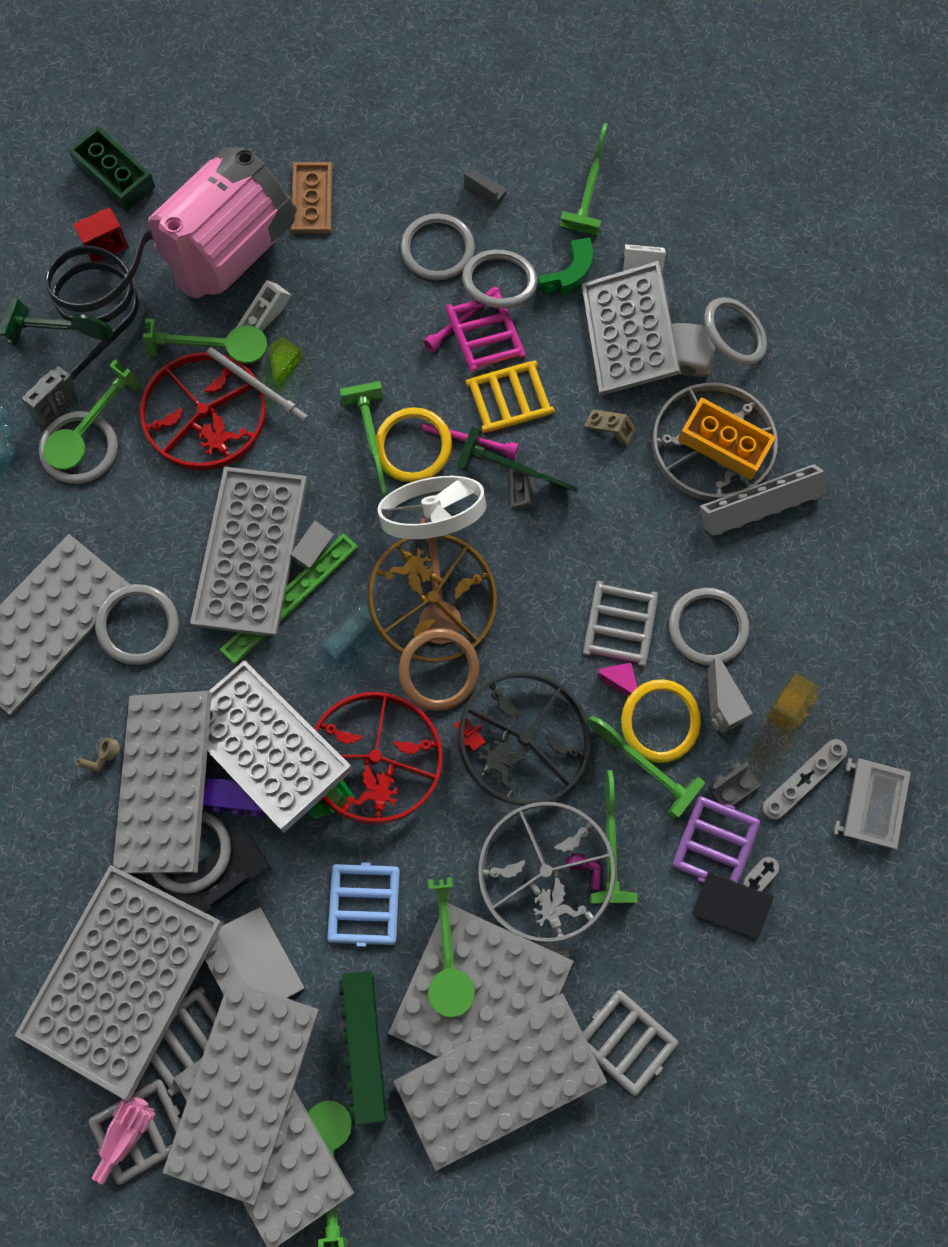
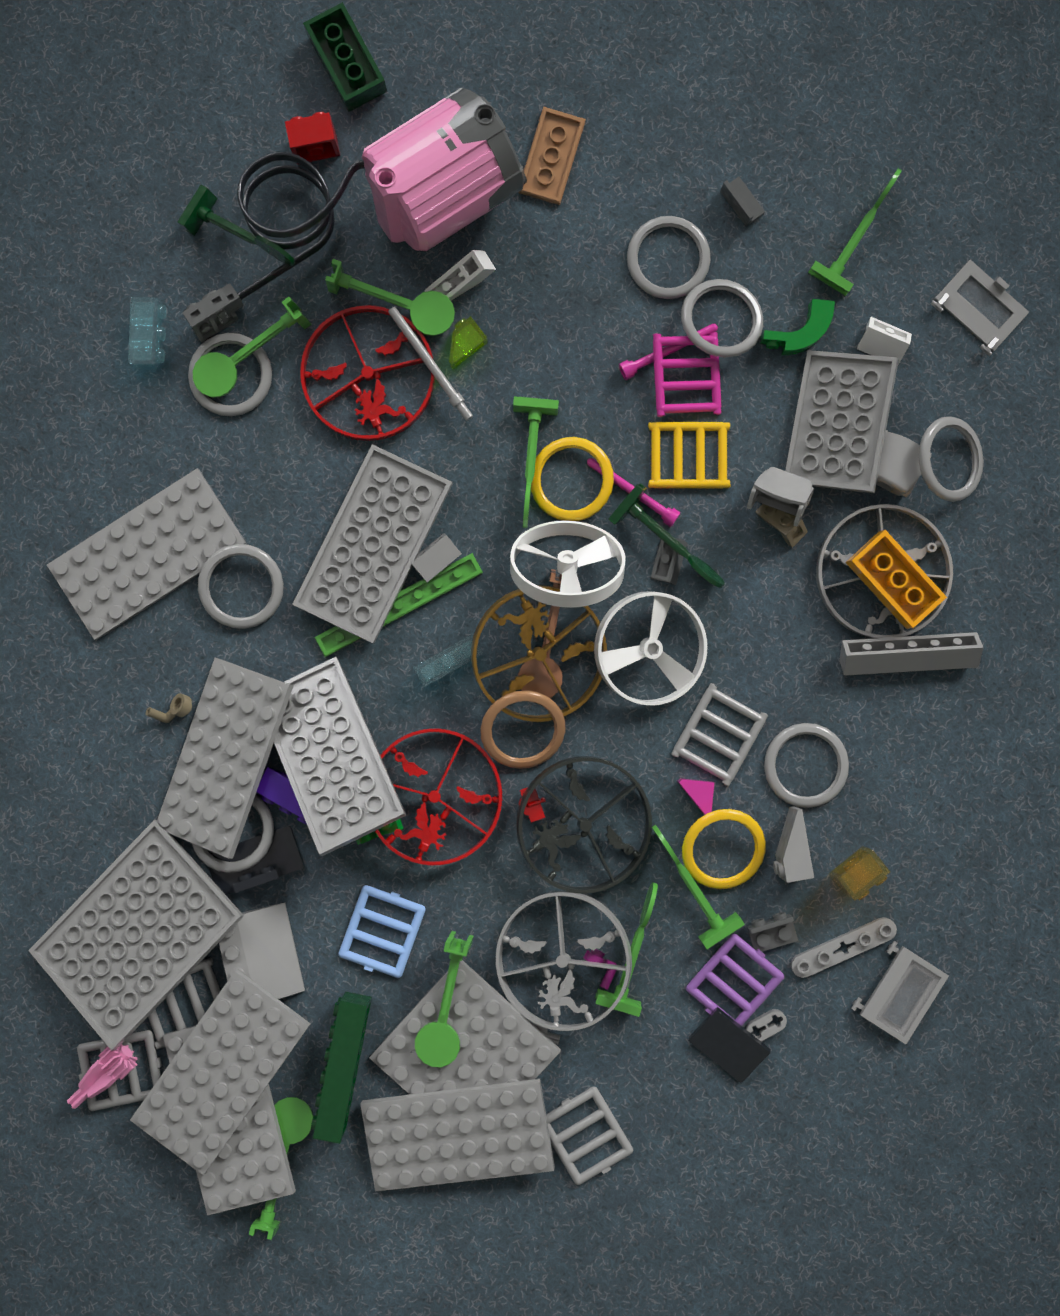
camera: 20 degrees right, 15 degrees up
(533, 563) = (651, 648): none -> white piece
(601, 398) = (783, 492): none -> light grey piece
(714, 211) = (981, 305): none -> light grey piece

